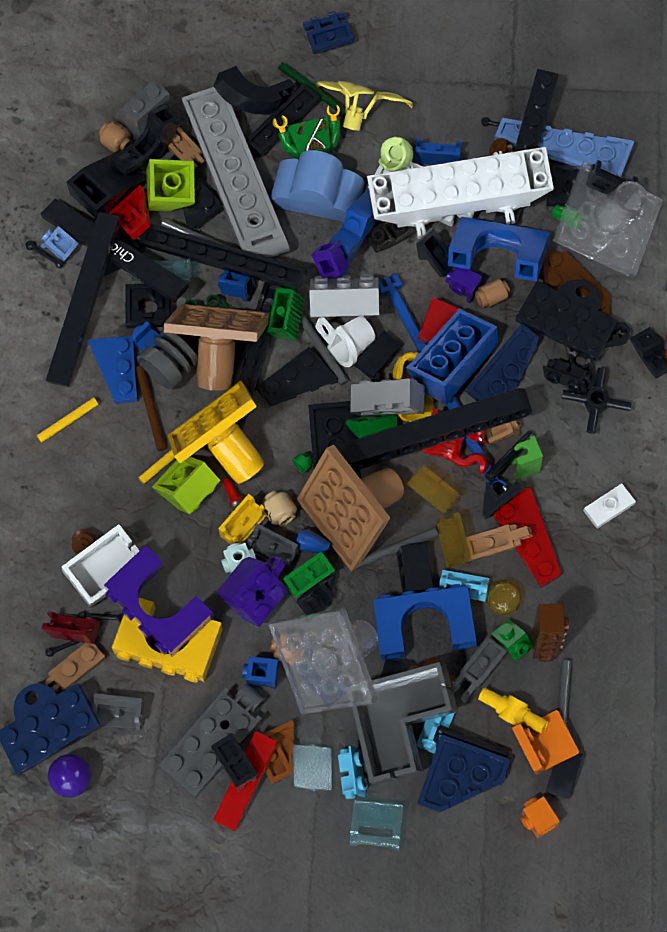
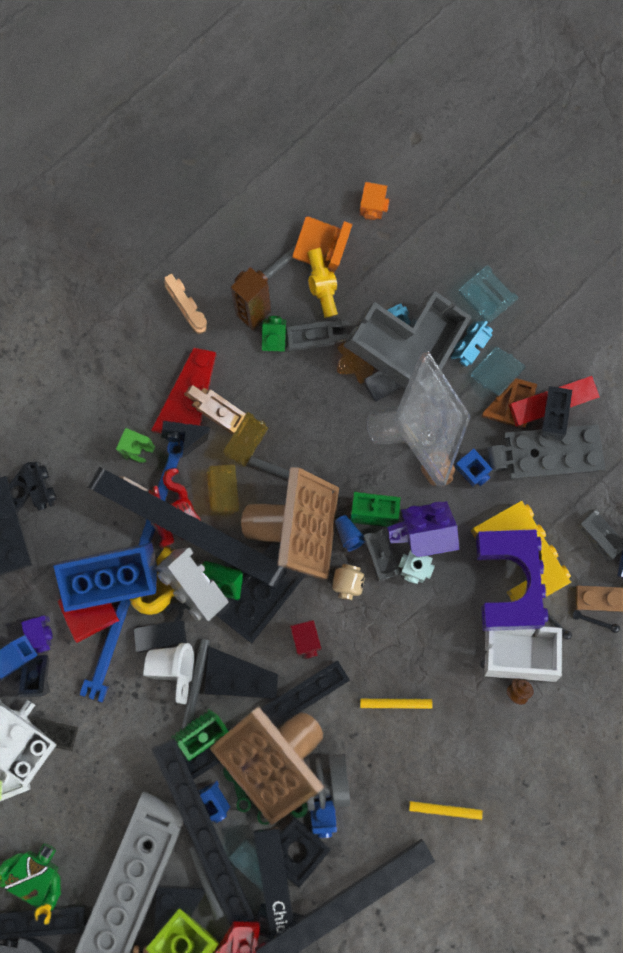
camera: 140 degrees left, 10 degrees up
(71, 628) = (585, 629): dark red hinge -> none
(117, 364) = (366, 821): blue wing -> none
(150, 407) = (372, 758): reddish brown bar -> none
(186, 484) = (401, 667): lime slope -> none
(224, 438) = (344, 680): yellow piece -> none
(234, 498) = (374, 618): red piece -> none
(242, 520) = (385, 595): yellow hinge -> none
(271, 437) = (306, 639): none -> dark red brick
(303, 462) = (298, 605): green hinge -> none
(316, 186) = (69, 828): medium blue brick -> none
(319, 597) = (383, 486): black slope -> none
(330, 260) = (124, 742): dark purple brick -> none
(344, 296) = (141, 704): brick -> none
(355, 228) = (86, 754): blue arch -> none
(393, 611) = (339, 426): blue arch -> none
(414, 568) = (294, 443): black hinge -> none
(459, 774) = (399, 276): dark blue plate -> none
(472, 741) = (367, 286): black bar -> none
(476, 585) = (269, 402): medium azure hinge -> none
(492, 293) = (26, 604): medium nougat brick -> none
(504, 597) = (249, 369): clear yellow hair -> none
(506, 366) = (92, 532): dark blue wing -> none
(507, 458) = (144, 464): black bar -> none
(563, 777) = (331, 212): black slope -> none
(596, 392) = (32, 441): black bar -> none
(599, 599) = (186, 305): none -> light nougat hinge
(609, 506) = (110, 365): white plate -> none

